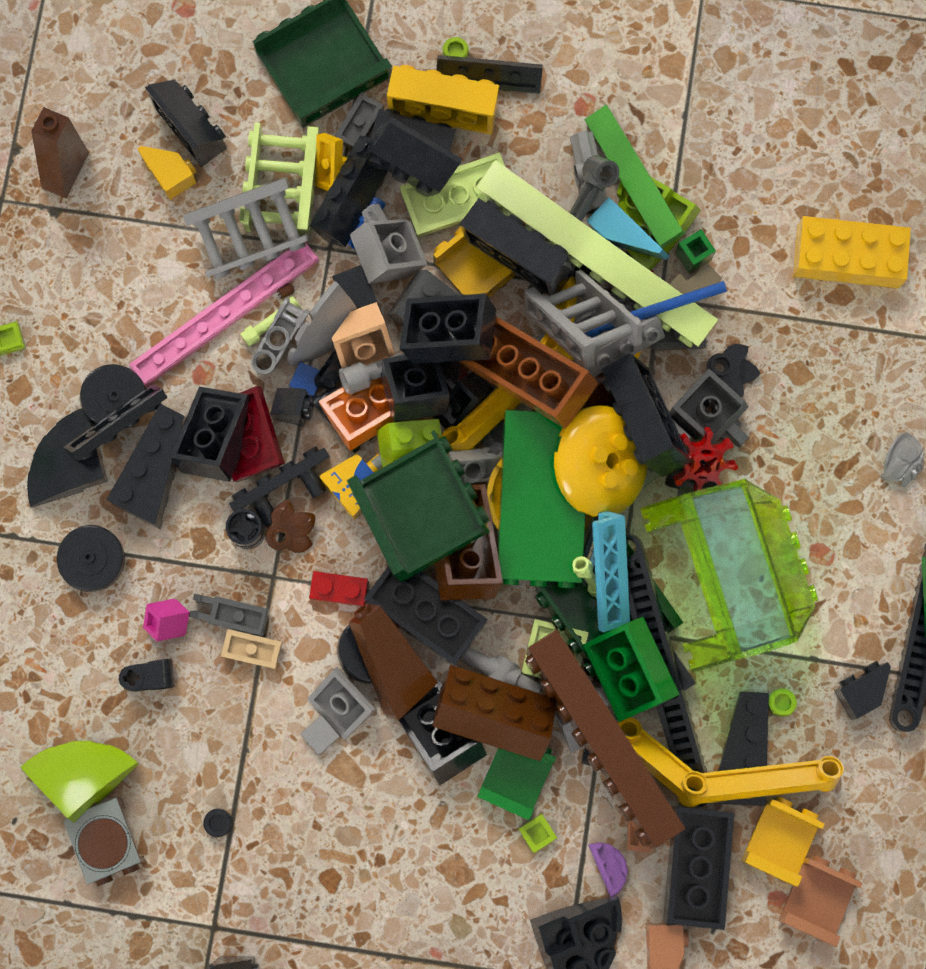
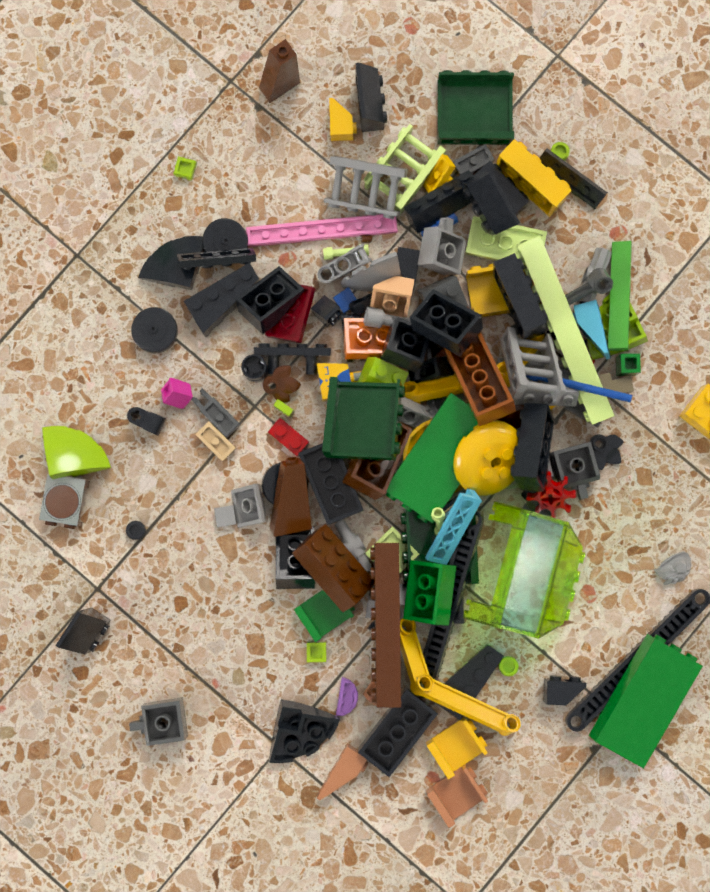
camera: 35 degrees right, 5 degrees up
(310, 556) = (283, 408): none -> lime tile

